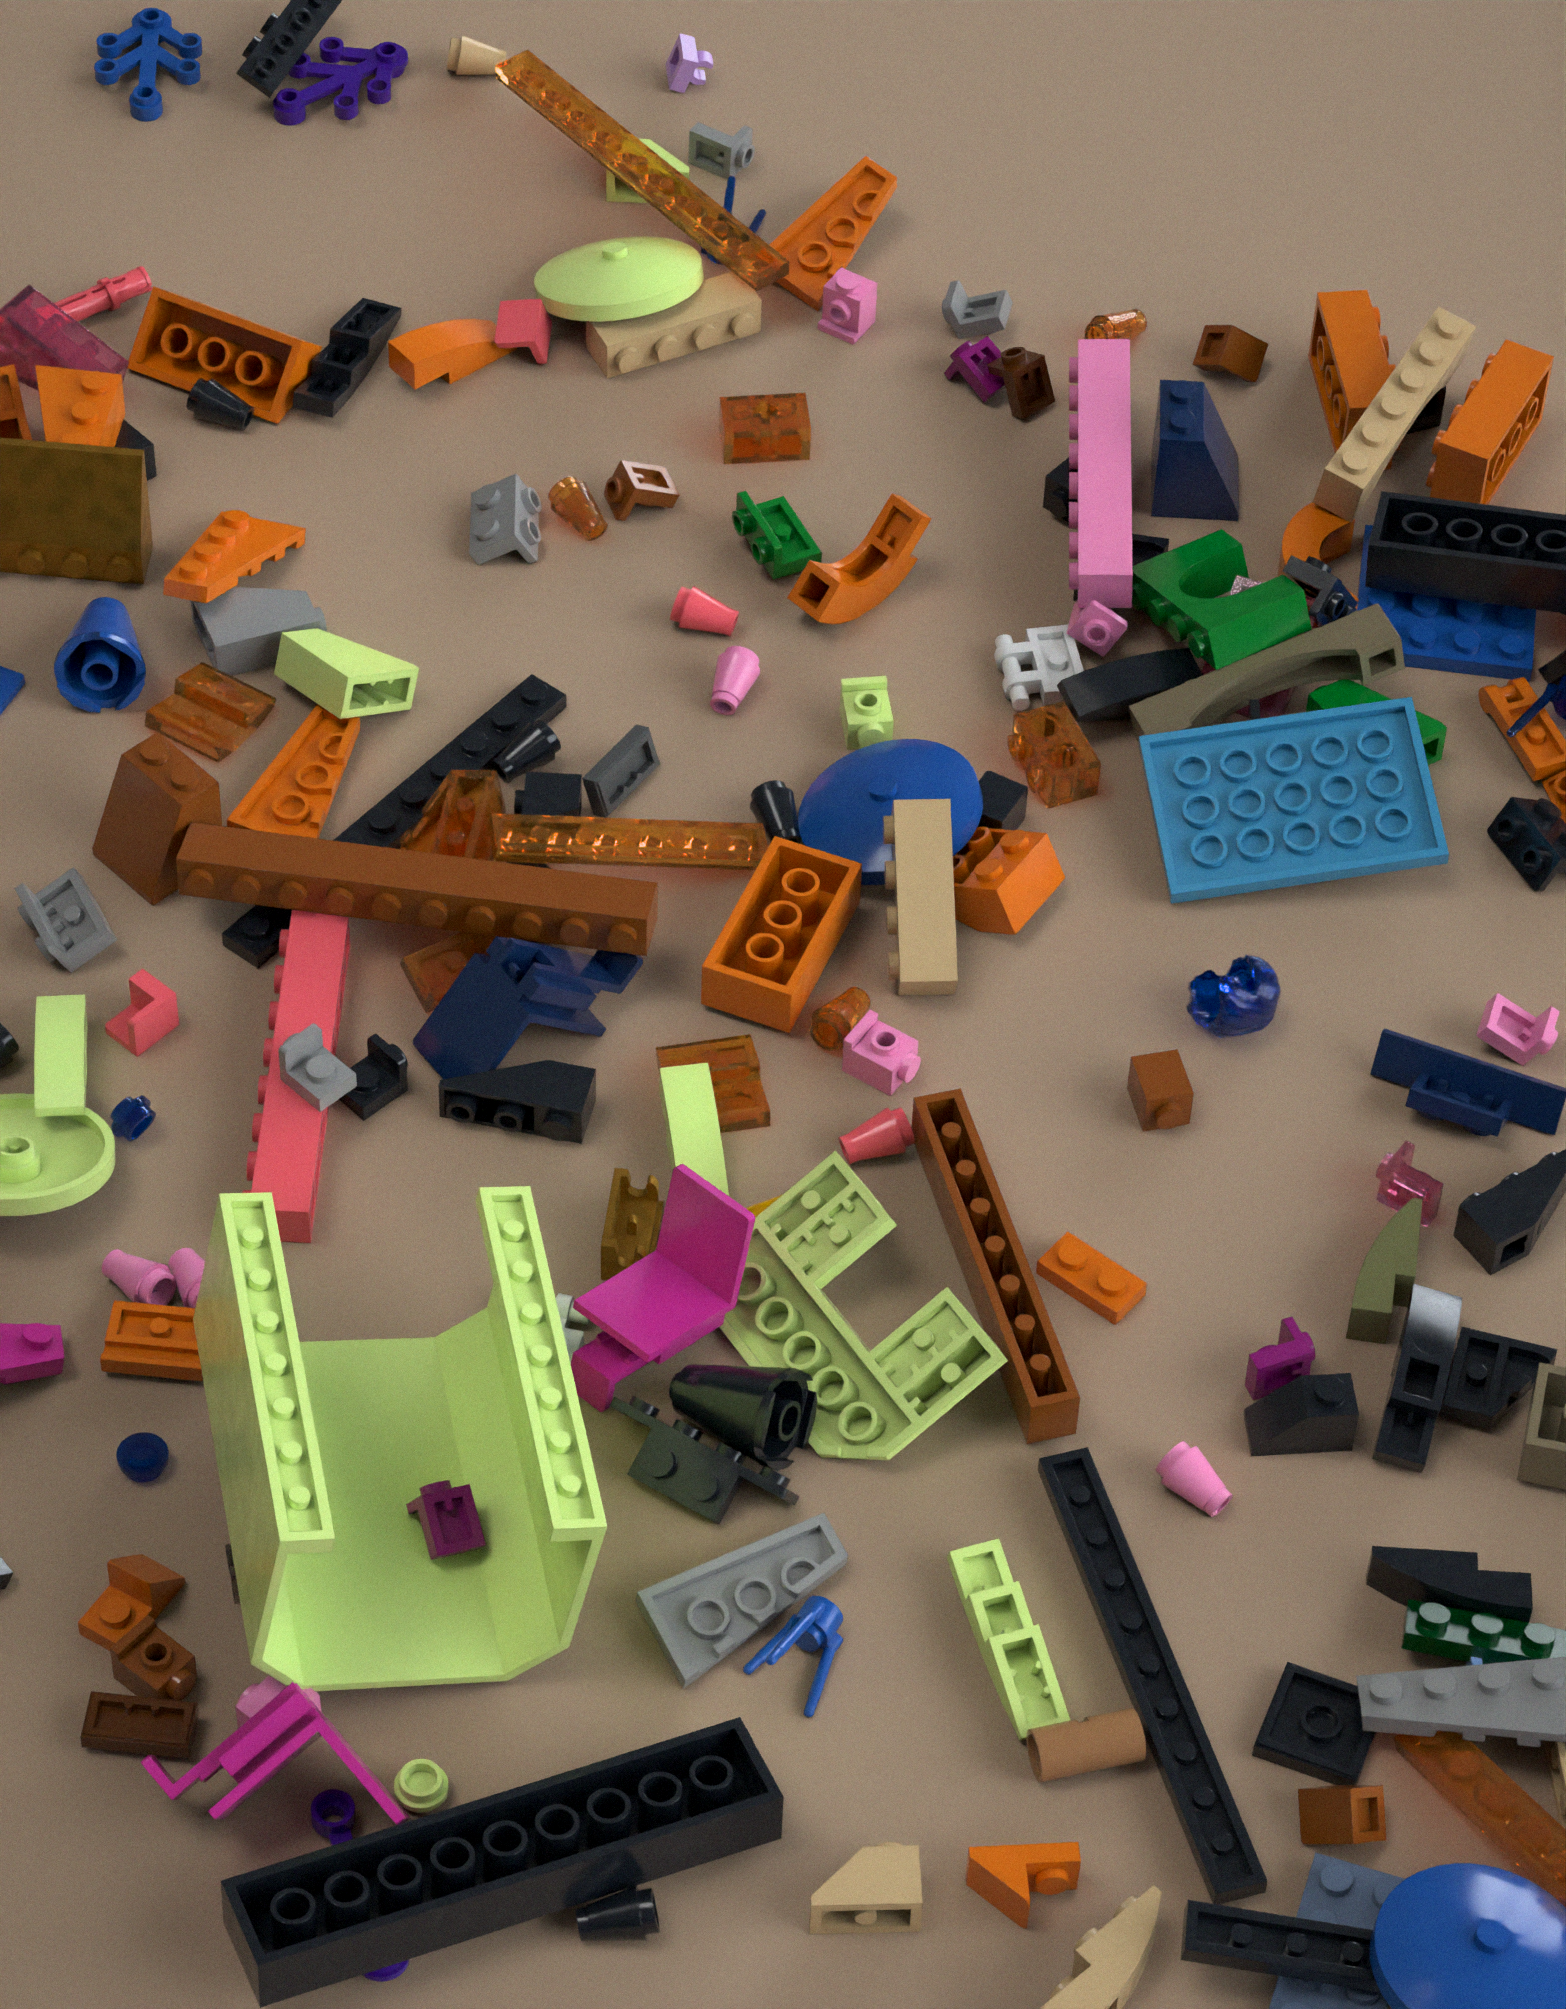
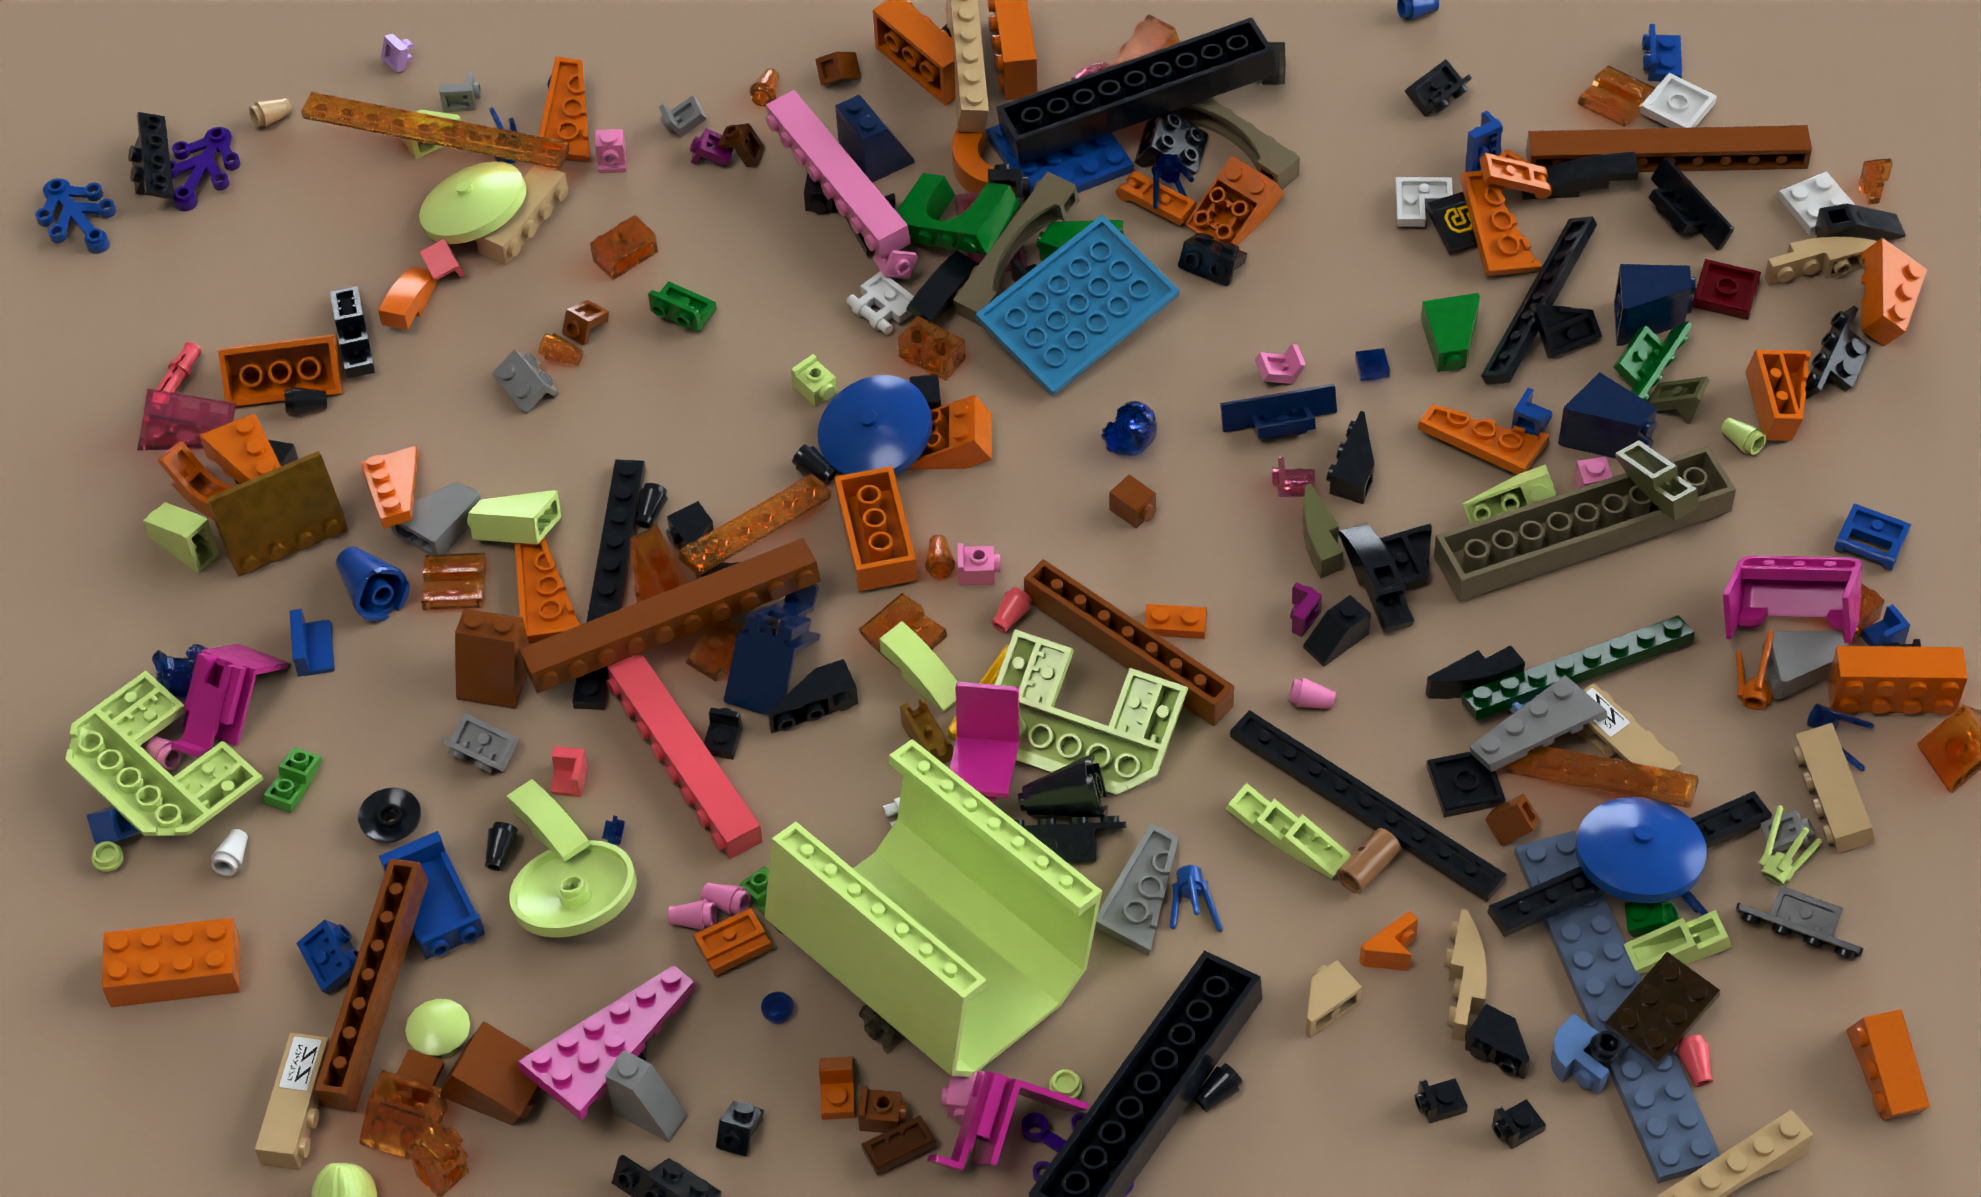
camera: 30 degrees left, 5 degrees up
(313, 1069) = (700, 747): light grey bracket -> none
(448, 1519) = (971, 941): magenta bracket -> none
(621, 771) = (711, 486): dark grey plate -> none
(702, 612) = (678, 372): coral cone -> none
(733, 678) = (726, 399): bright pink cone -> none
(869, 573) = (749, 304): orange arch -> none
(922, 897) = (937, 466): tan brick -> none

